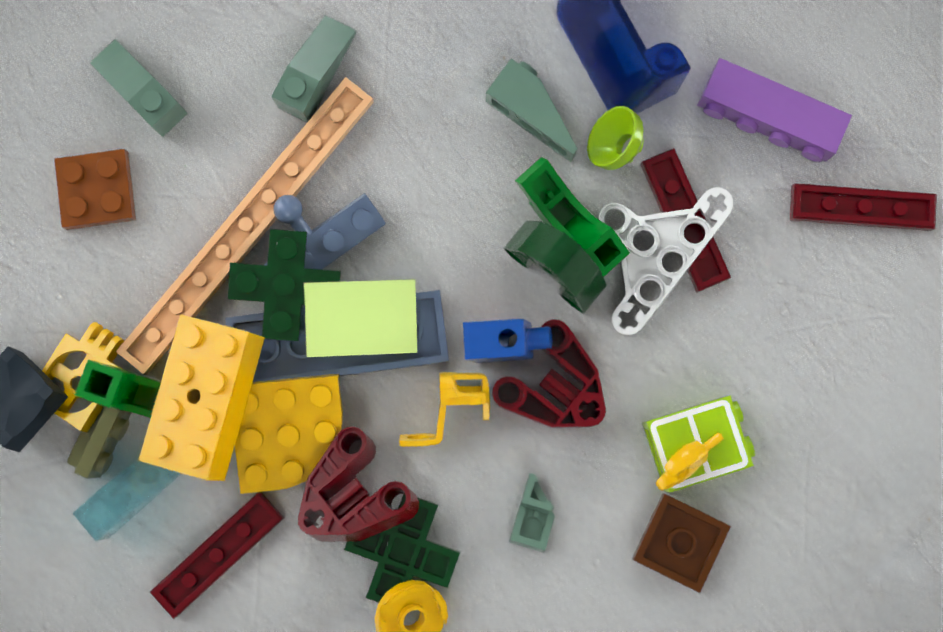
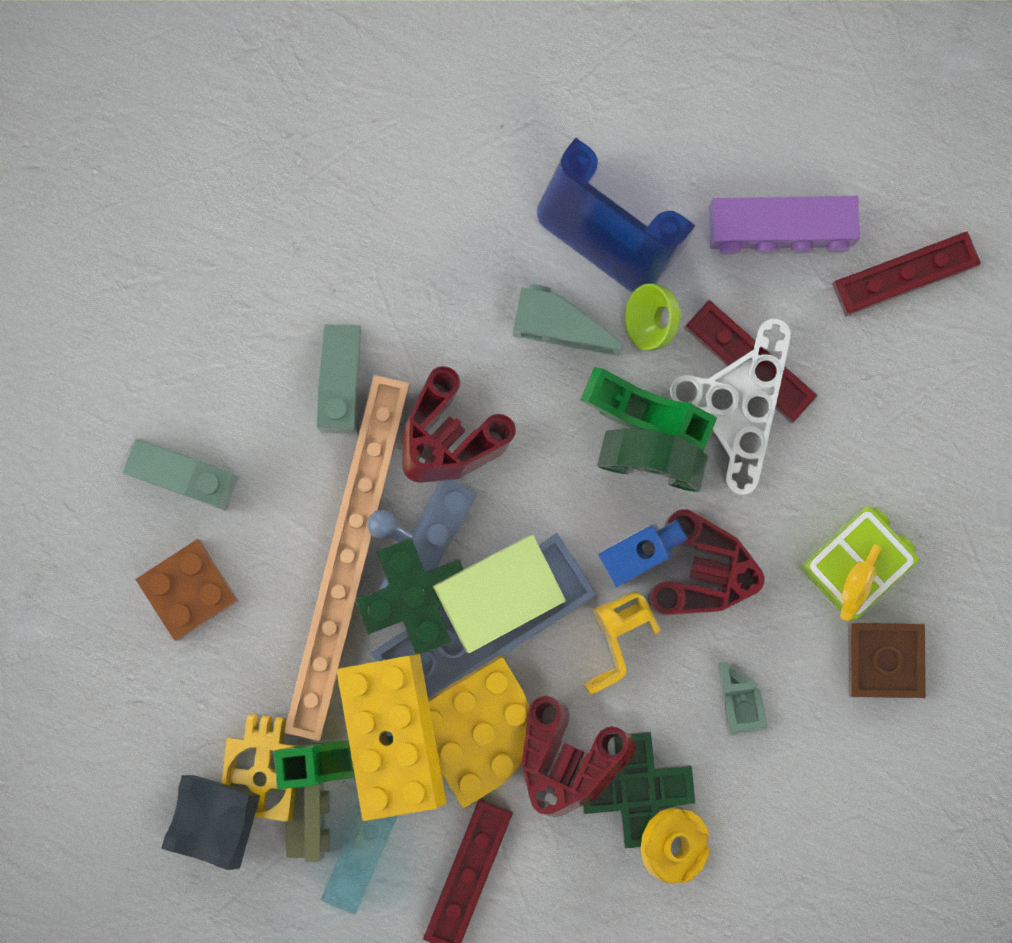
camera: 30 degrees left, 0 degrees up
(393, 184) = (439, 462): none -> dark red connector

